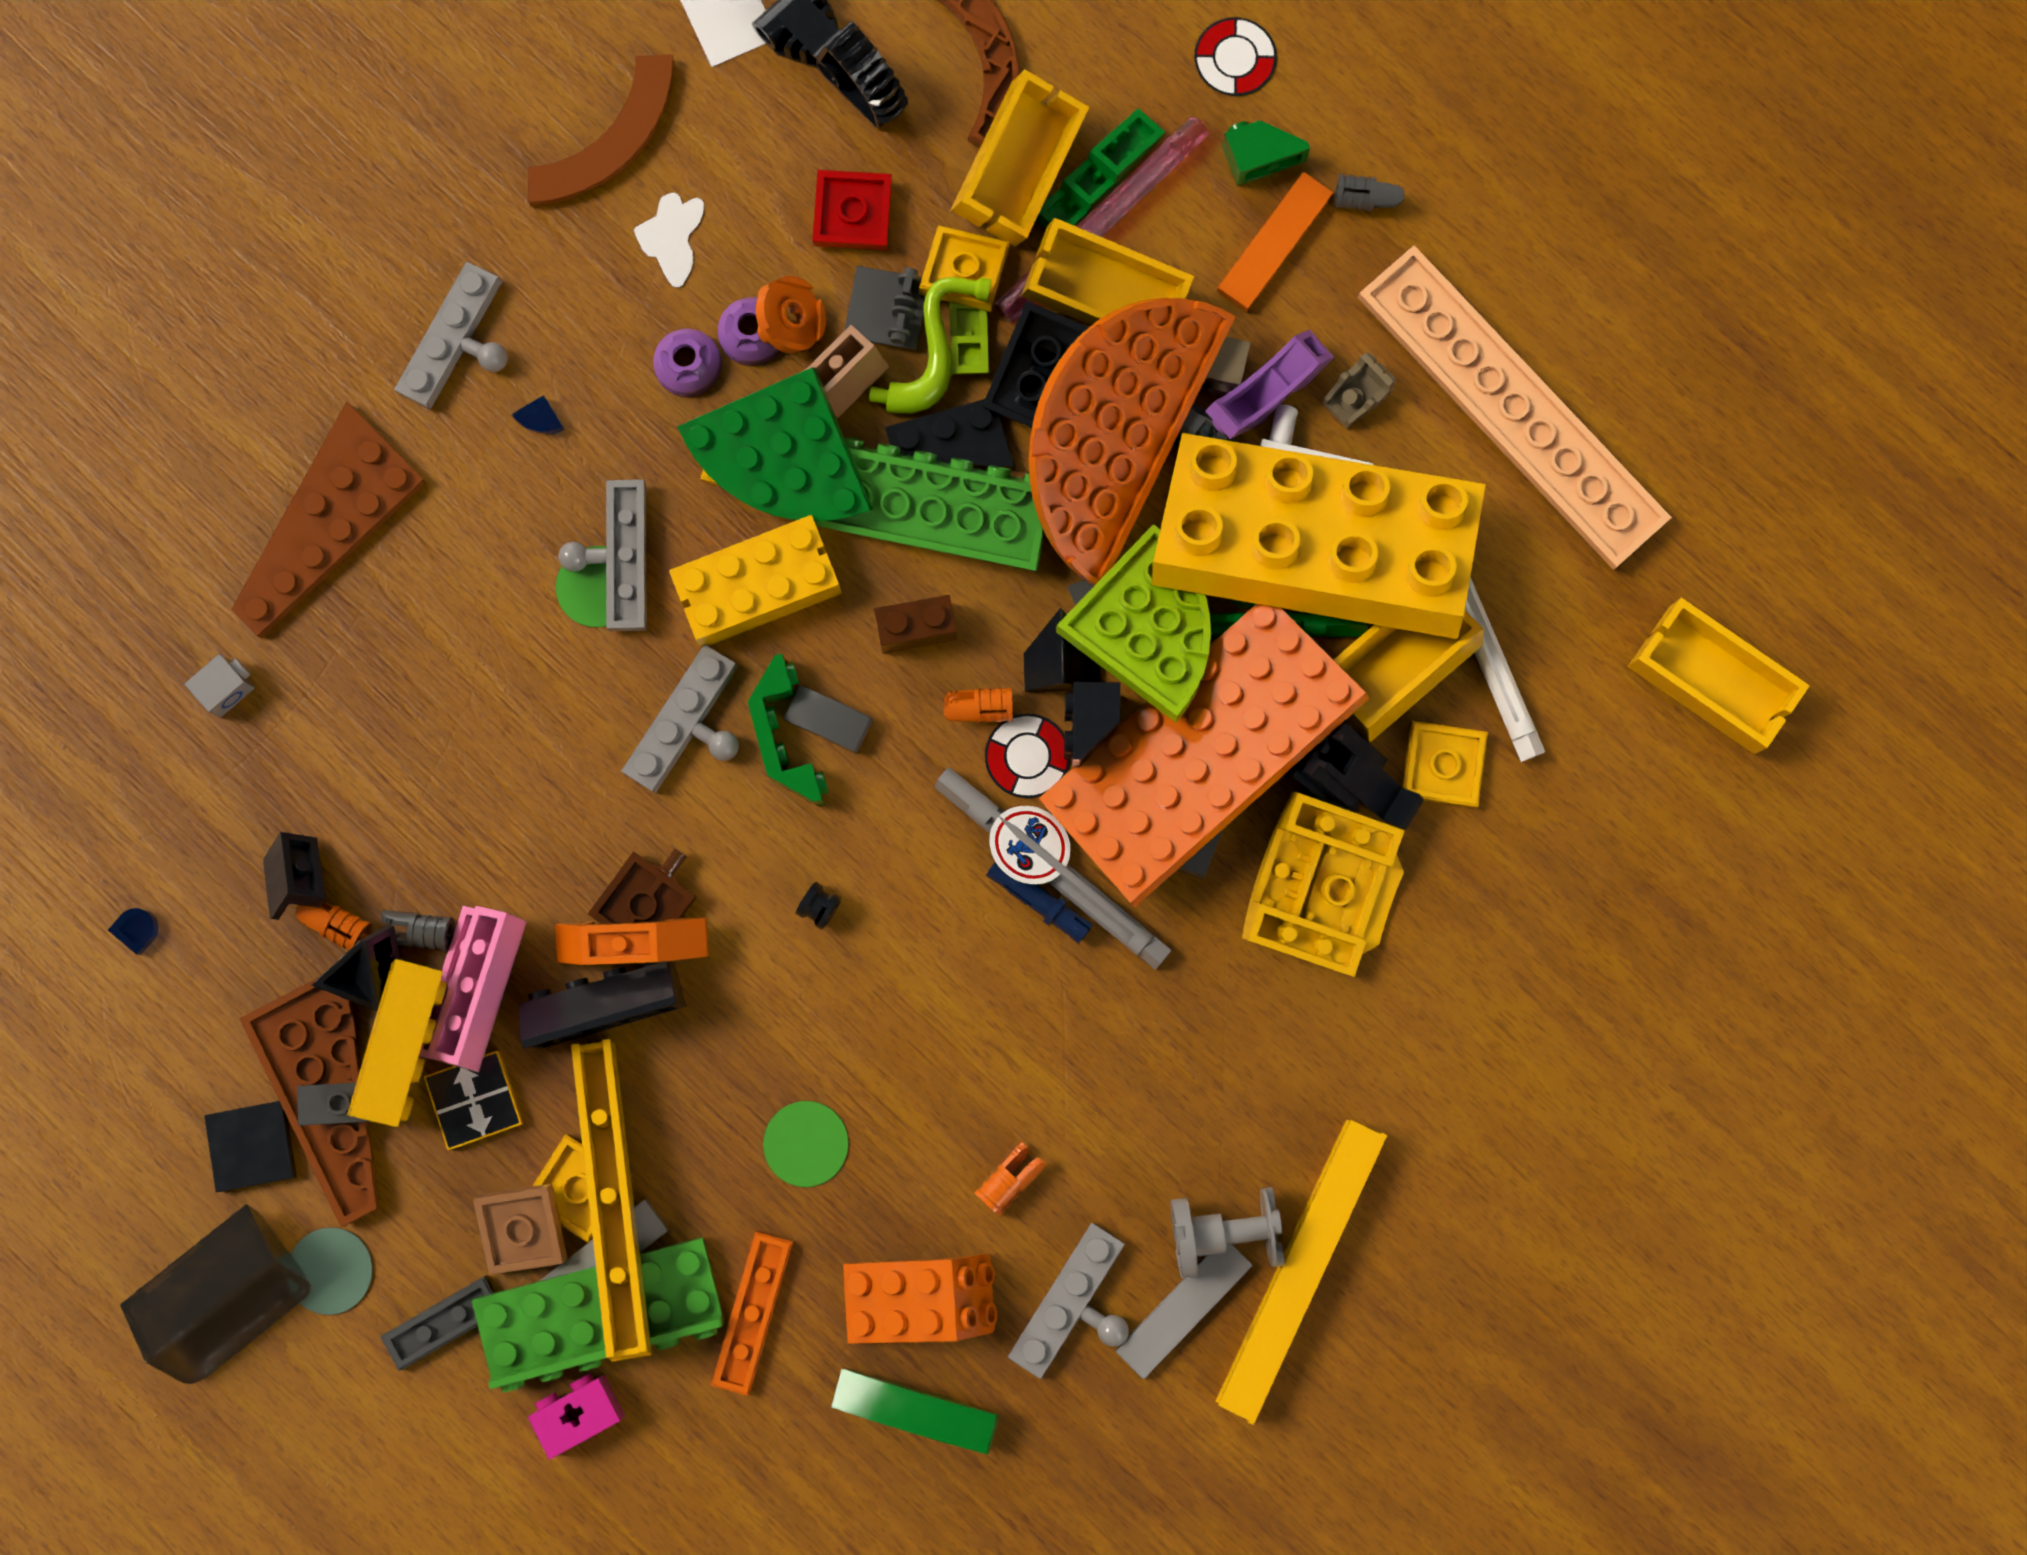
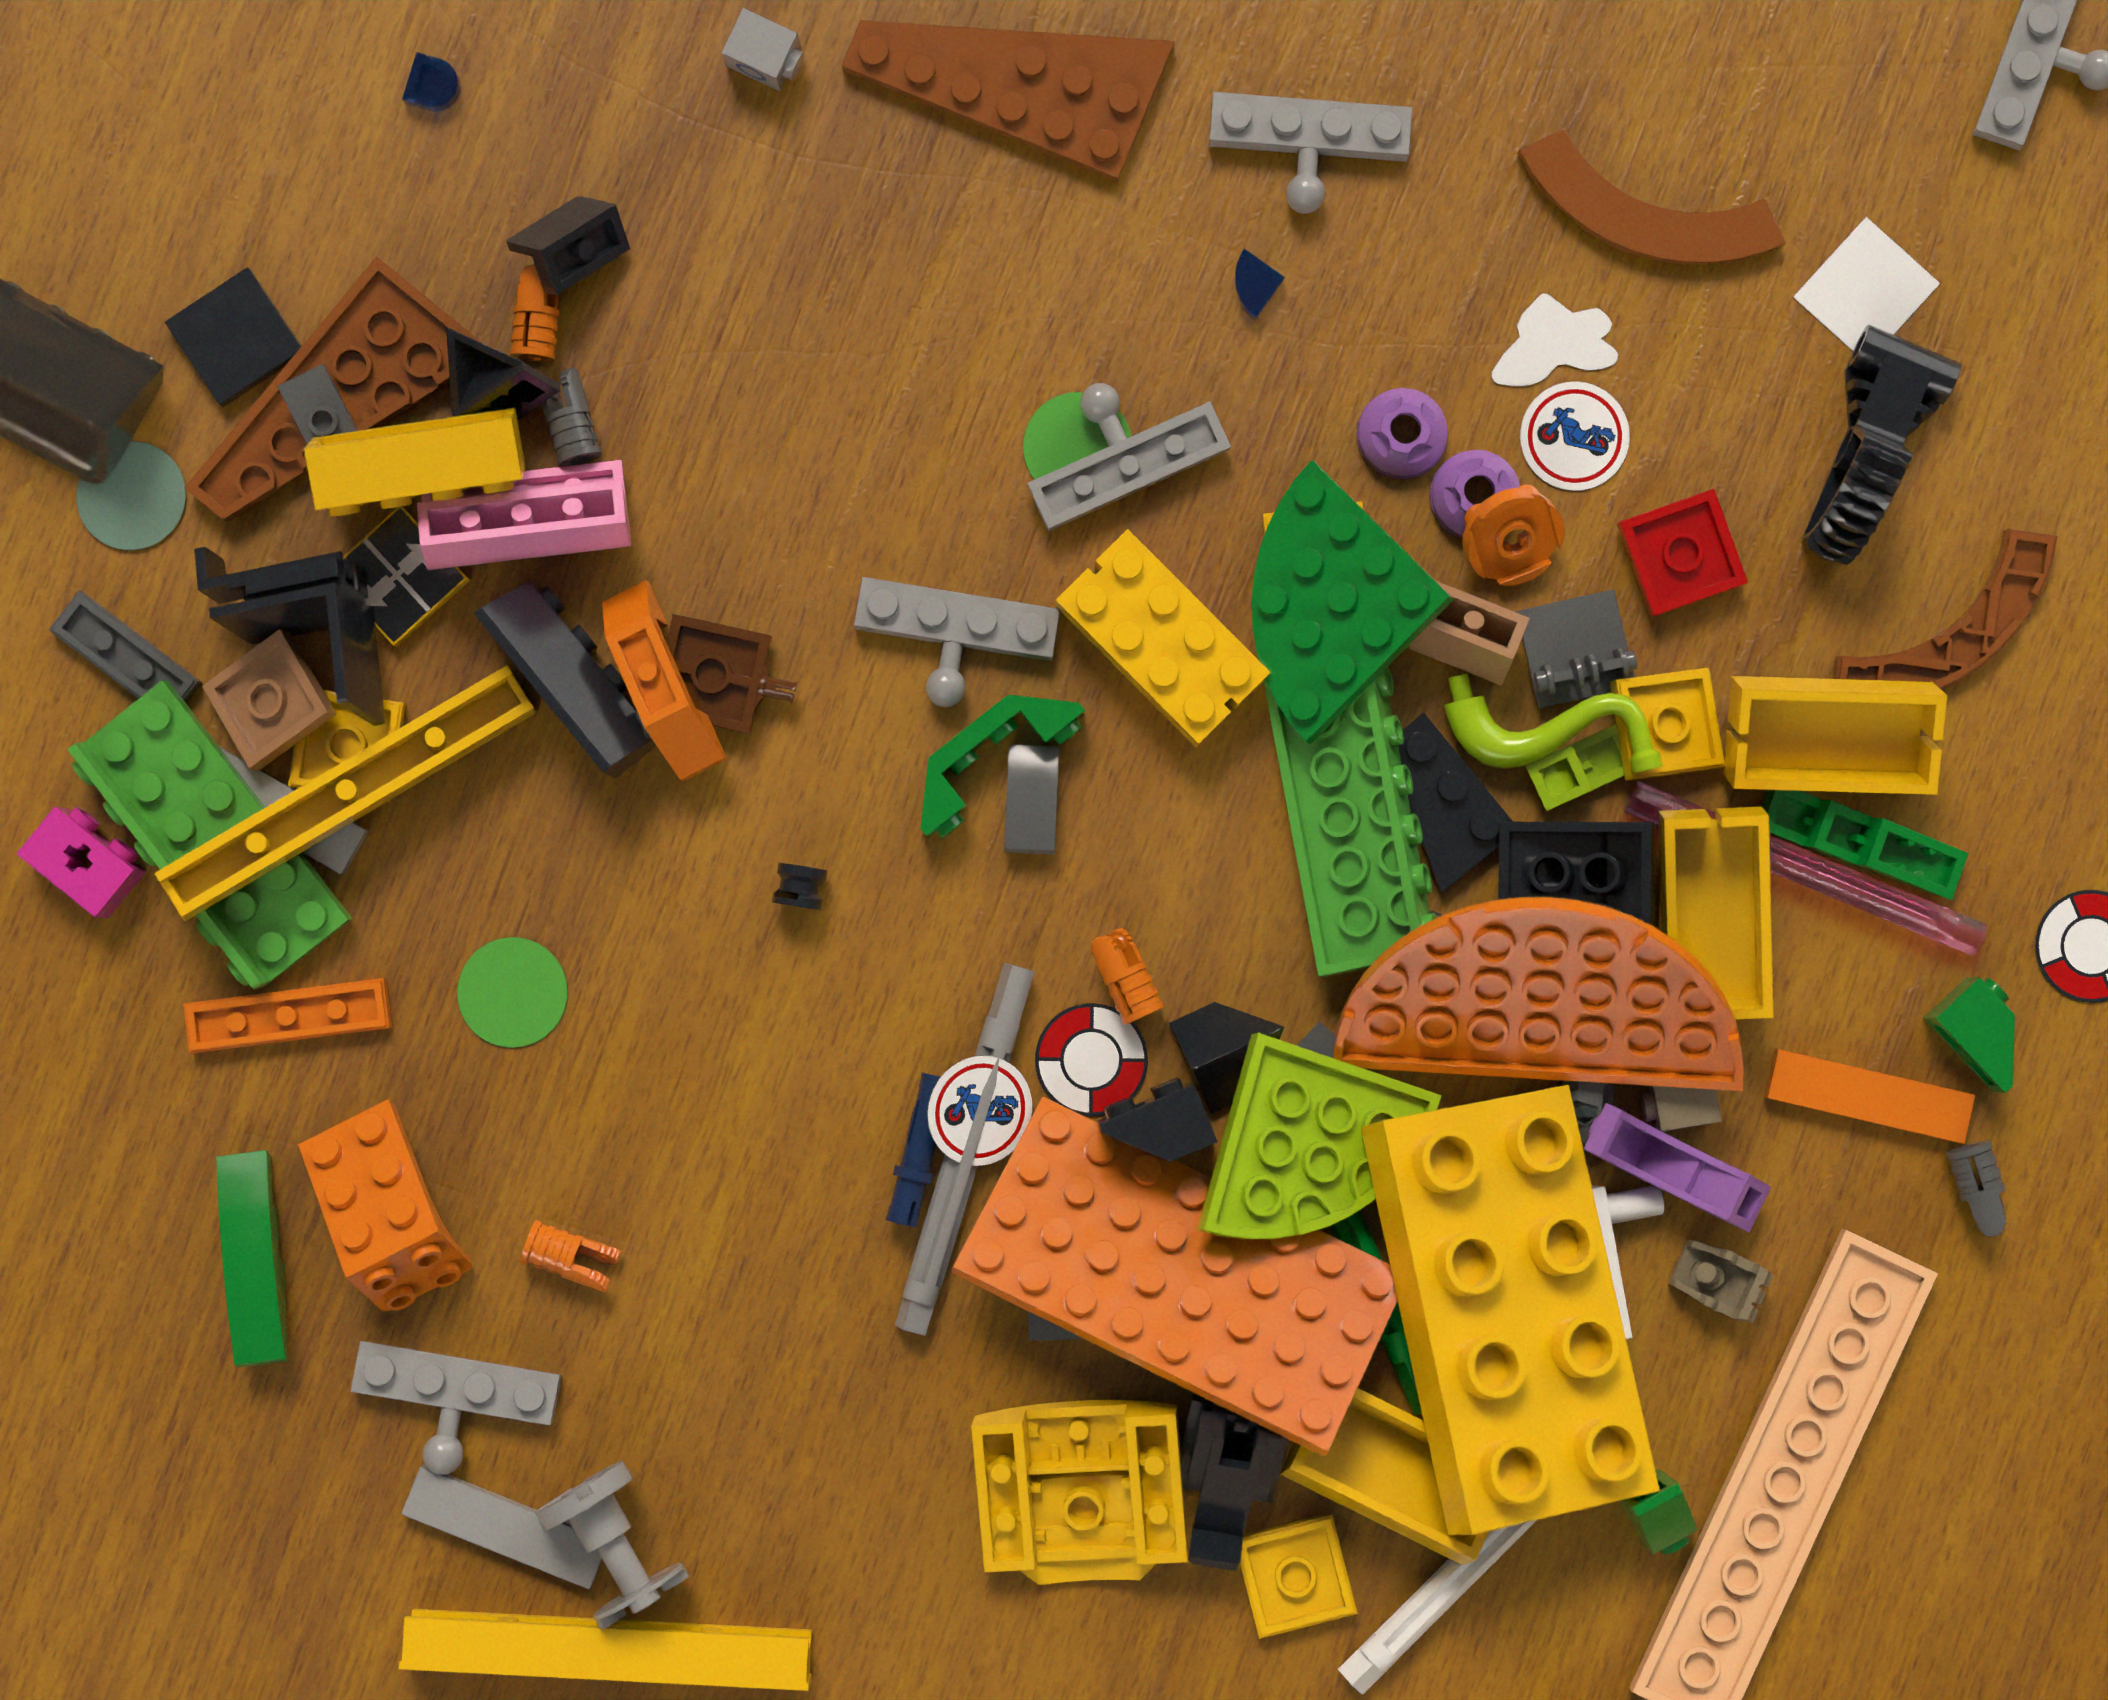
camera: 65 degrees right, 5 degrees up
(459, 1174) = (304, 599): none -> black piece
(741, 249) = (1574, 436): none -> white sticker
(915, 624) = (1192, 856): reddish brown brick -> none
(1504, 496) = (1661, 1516): none -> green slope

